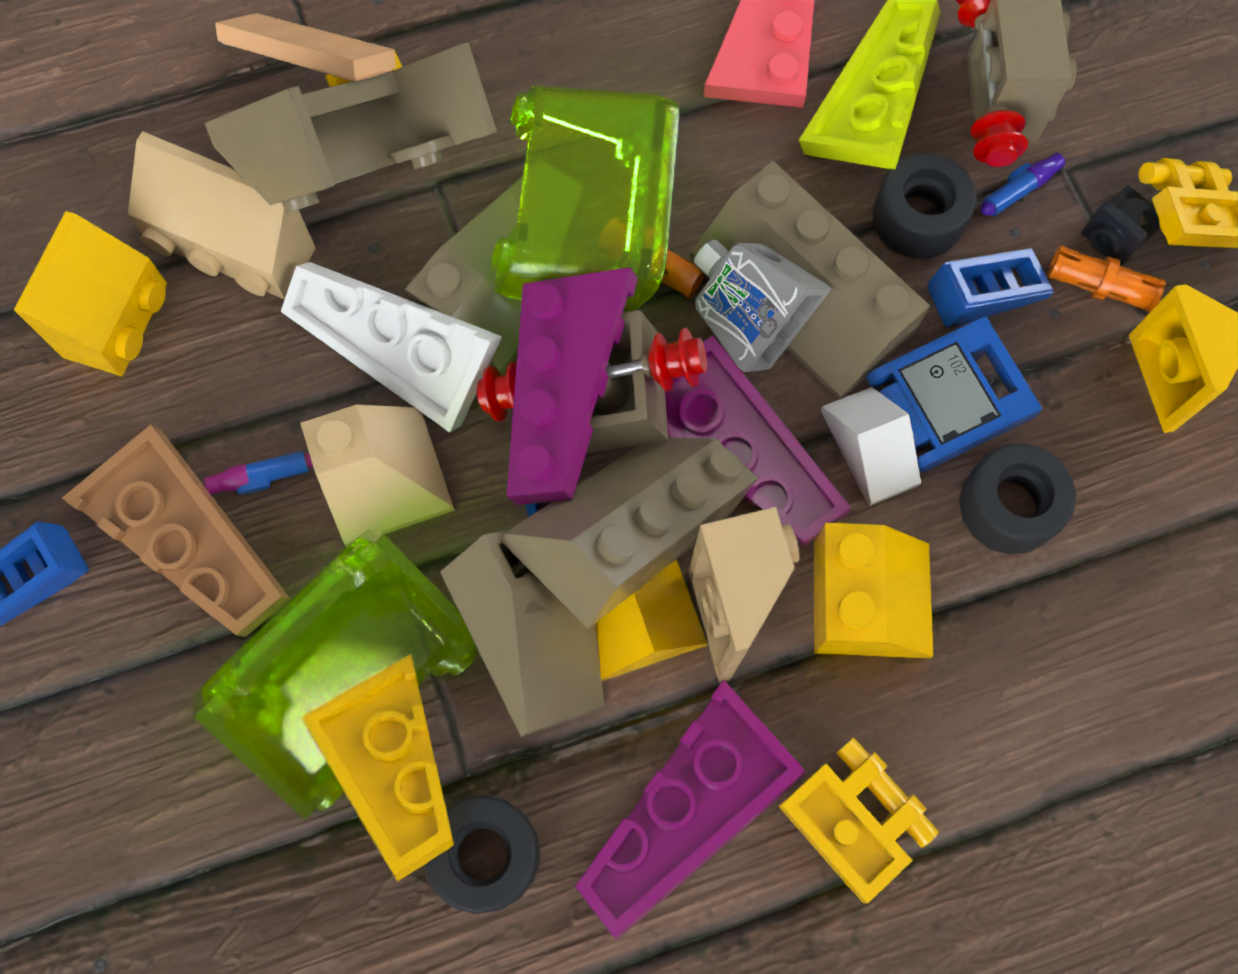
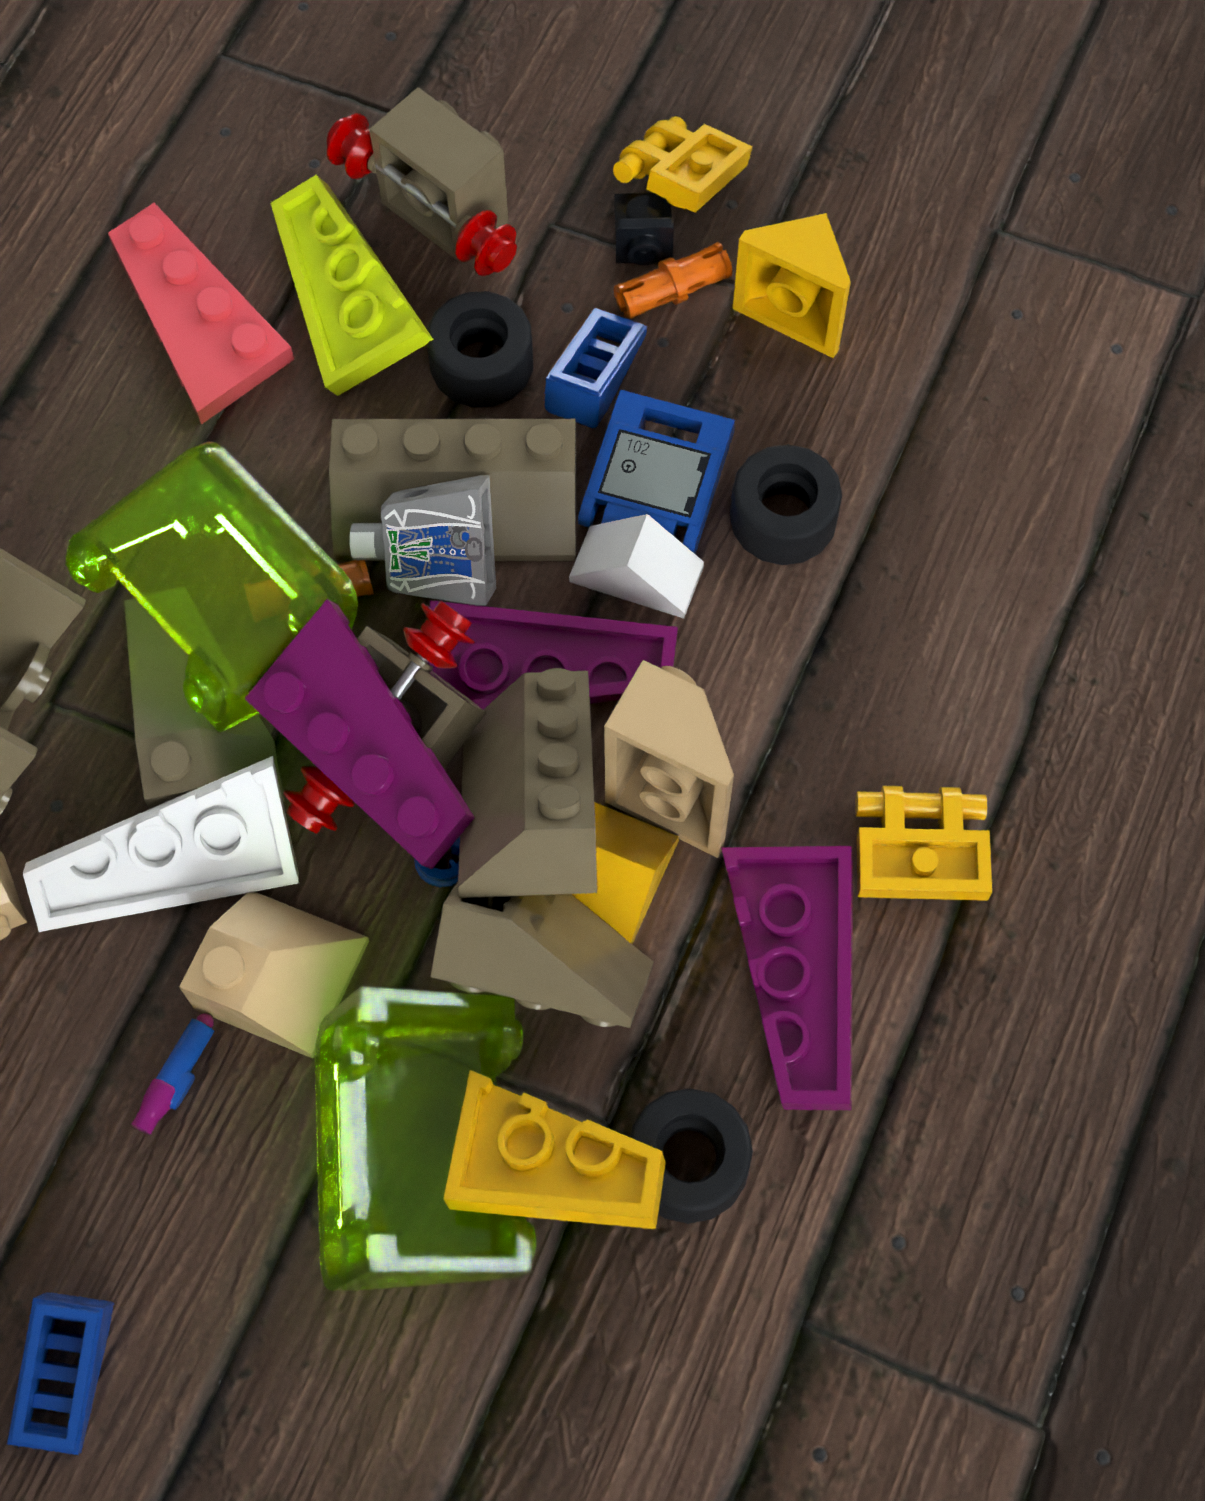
camera: 45 degrees left, 5 degrees down
(179, 530) = (144, 1186): medium nougat wing -> none
(871, 592) = (758, 677): yellow slope -> none
(1022, 182) = (533, 264): piece -> none

